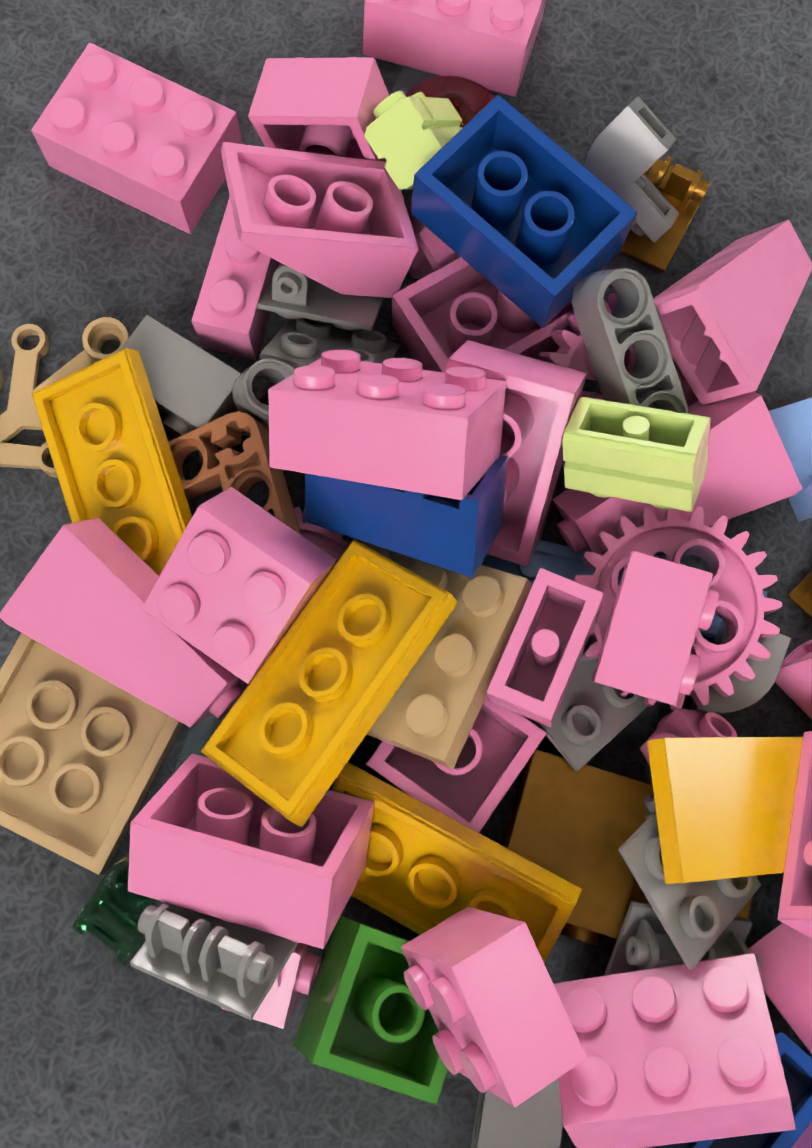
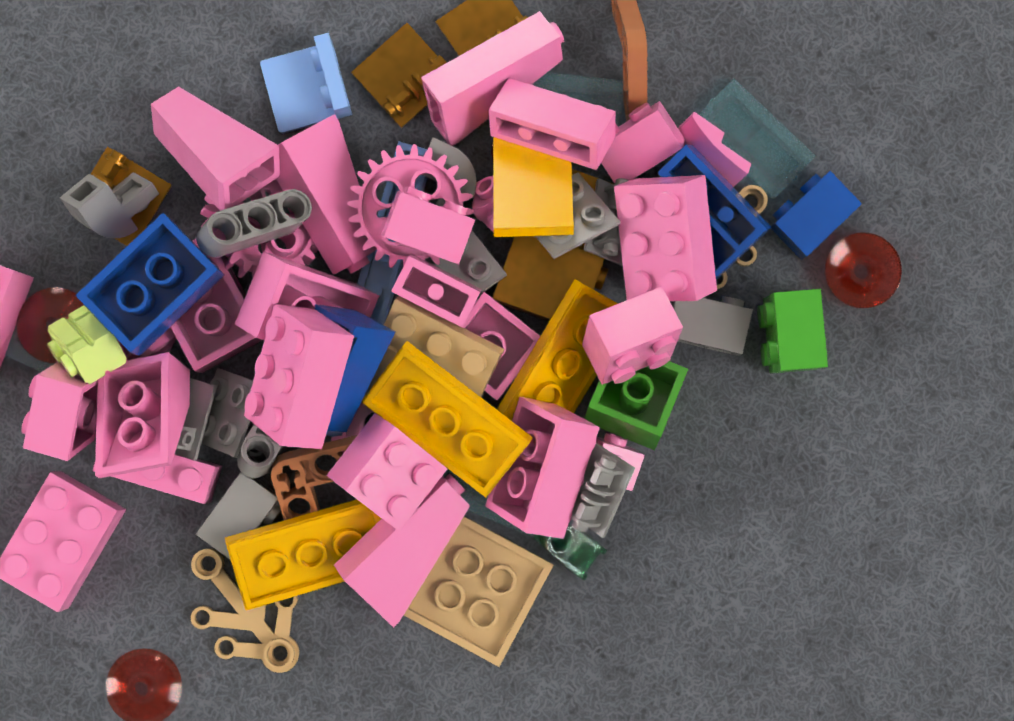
camera: 85 degrees left, 10 degrees up
(636, 453) = (319, 226): yellowish green brick -> none

